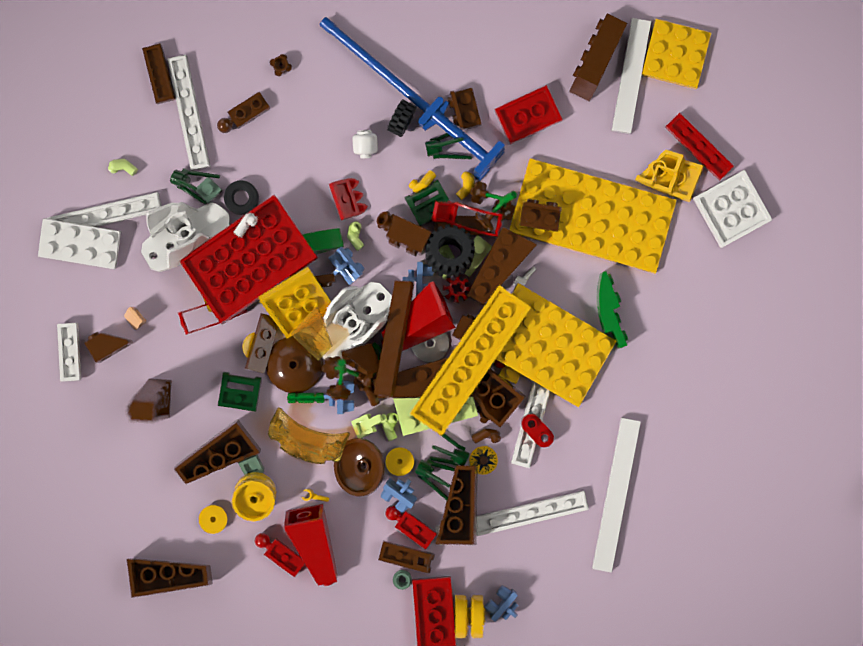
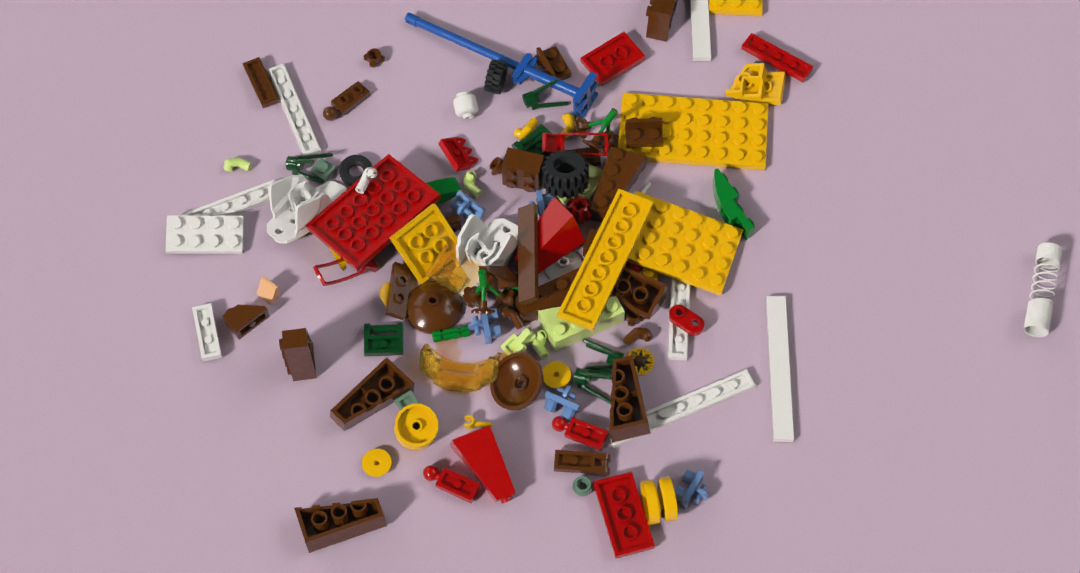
camera: 10 degrees left, 25 degrees down
(732, 209) = (822, 102): white plate -> none

